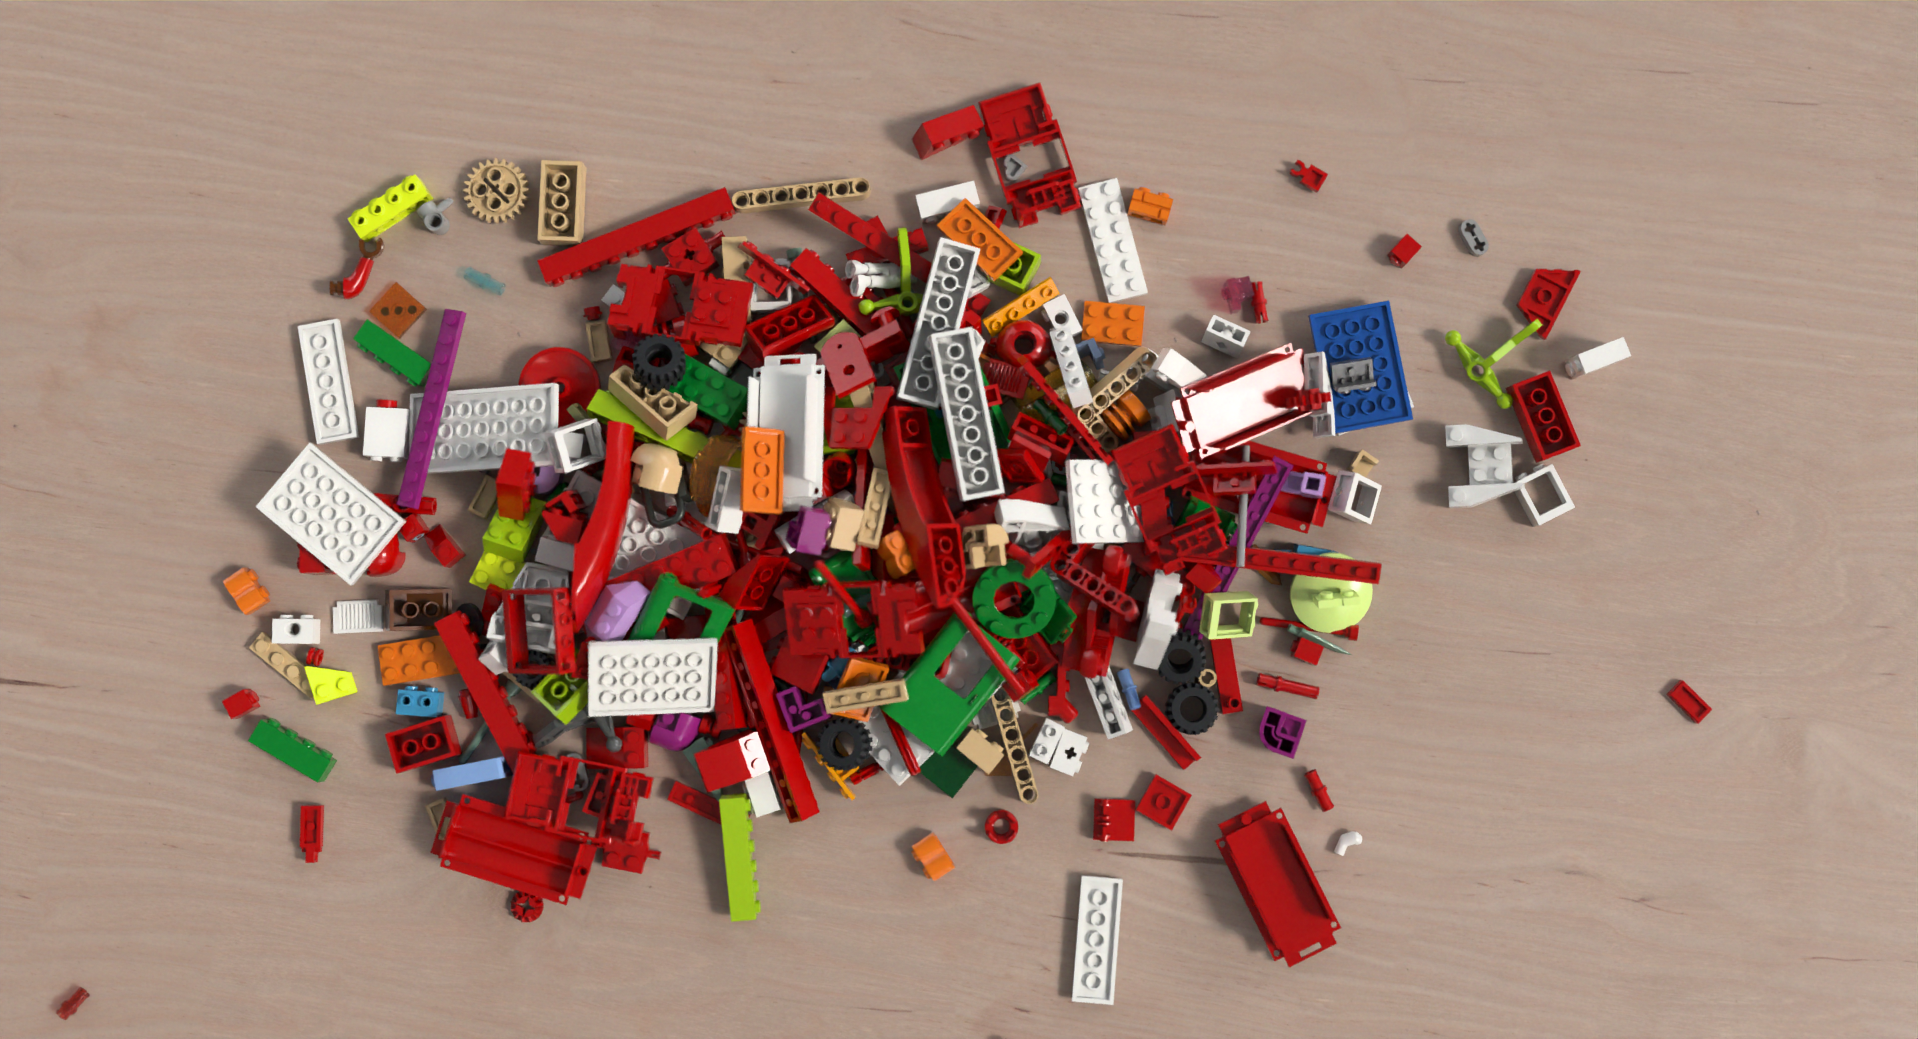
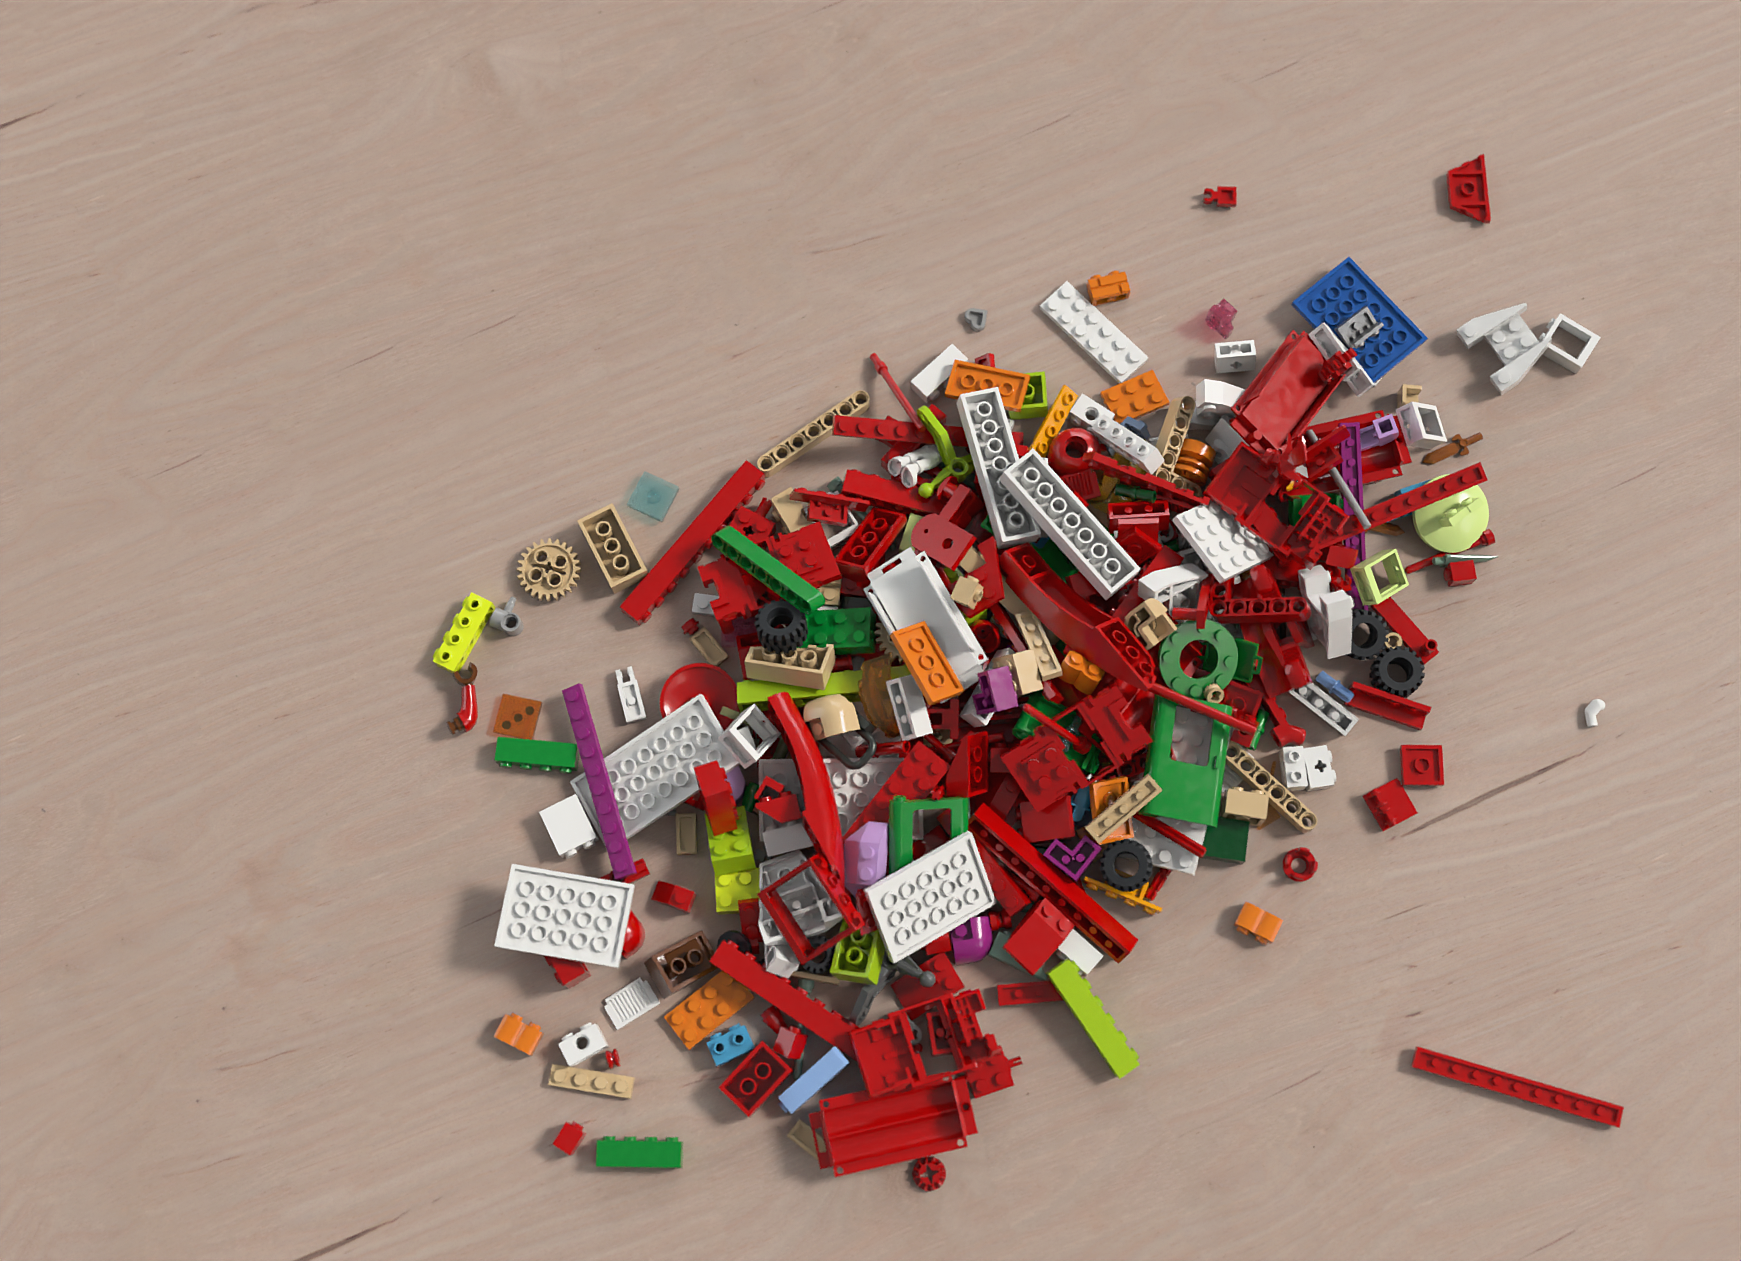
camera: 30 degrees left, 10 degrees down
(311, 831) = (697, 1217): red hinge -> none
(328, 381) = (490, 811): white plate -> none
(329, 684) = (640, 1074): neon yellow wing -> none
(386, 403) = (553, 800): red tile -> none
(414, 528) = (641, 895): red brick -> none
(470, 729) = (790, 1042): none -> red brick
(484, 281) = (581, 650): clear light blue pin -> none
(505, 346) = (630, 697): none -> white hinge
(626, 174) = (653, 496): none -> clear light blue plate
(676, 304) = (768, 570): none -> green beam
(837, 425) = (967, 592): none -> tan brick
(897, 169) = (882, 369): none -> red bar
(947, 131) = (904, 318): red wedge -> none
(1010, 633) = (1208, 693): none -> tan bush
(1016, 121) = (964, 272): red piece -> none
(1097, 940) = (1440, 914): white plate -> none
(1200, 470) = (1291, 463): none -> red animal
(1259, 303) = (1244, 317): red pin -> none
(1277, 883) = (1560, 776): red piece -> none
(1280, 684) = (1455, 613): red pin -> none
(1281, 732) = (1483, 649): magenta brick -> none
(1319, 790) = (1543, 682): red pin -> none
(1370, 532) = (1452, 448): none -> dark orange sword
(1403, 251) = (1334, 214): red brick -> none
(1477, 235) = (1382, 175): light grey beam -> none
(1488, 379) = (1466, 276): lime piece -> none
(1543, 416) = (1528, 281): red brick -> none
(1597, 358) = (1542, 212): white brick -> none

